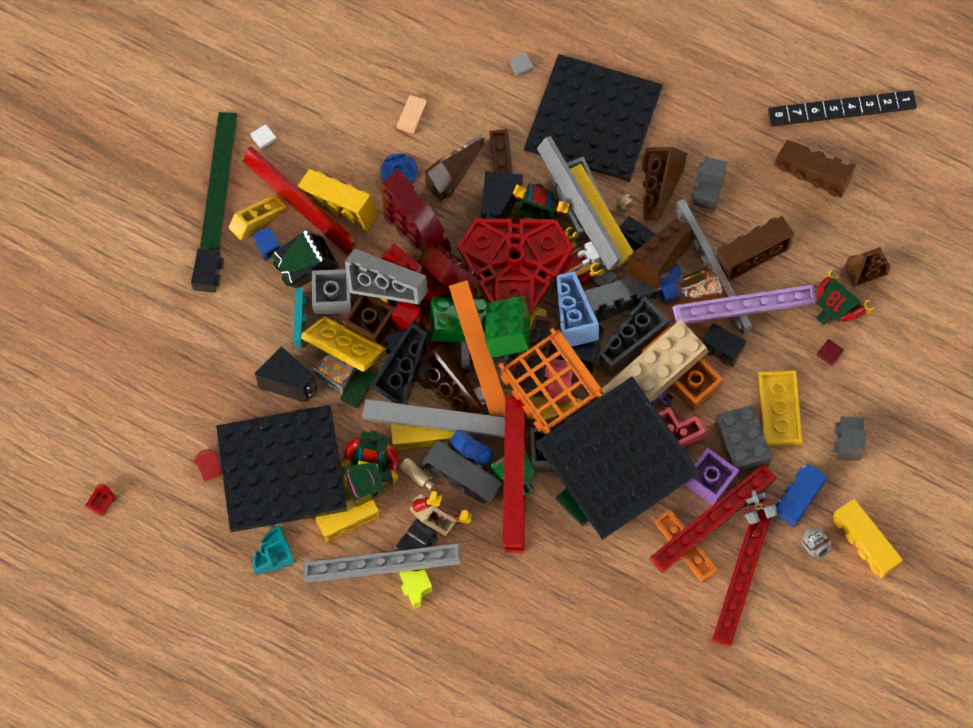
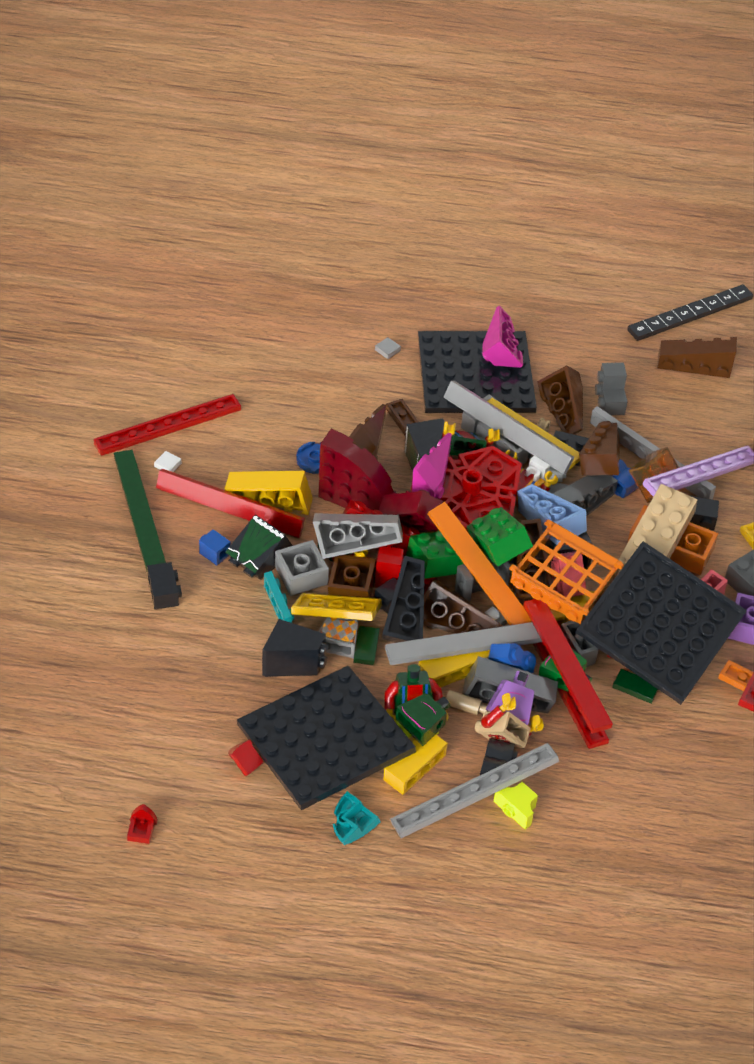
camera: 25 degrees left, 20 degrees down
(253, 218) = (191, 528): yellow slope -> none
(280, 92) = (166, 424): none -> red tile
(411, 114) = (304, 410): light nougat tile -> none
(452, 488) = (522, 695): none -> medium lavender torso
(477, 239) = (431, 469): none -> dark pink wedge
(626, 97) = (500, 343): none -> dark pink wedge
(633, 336) = (615, 521): dark grey wedge -> none
(755, 248) = (684, 424): reddish brown brick -> none

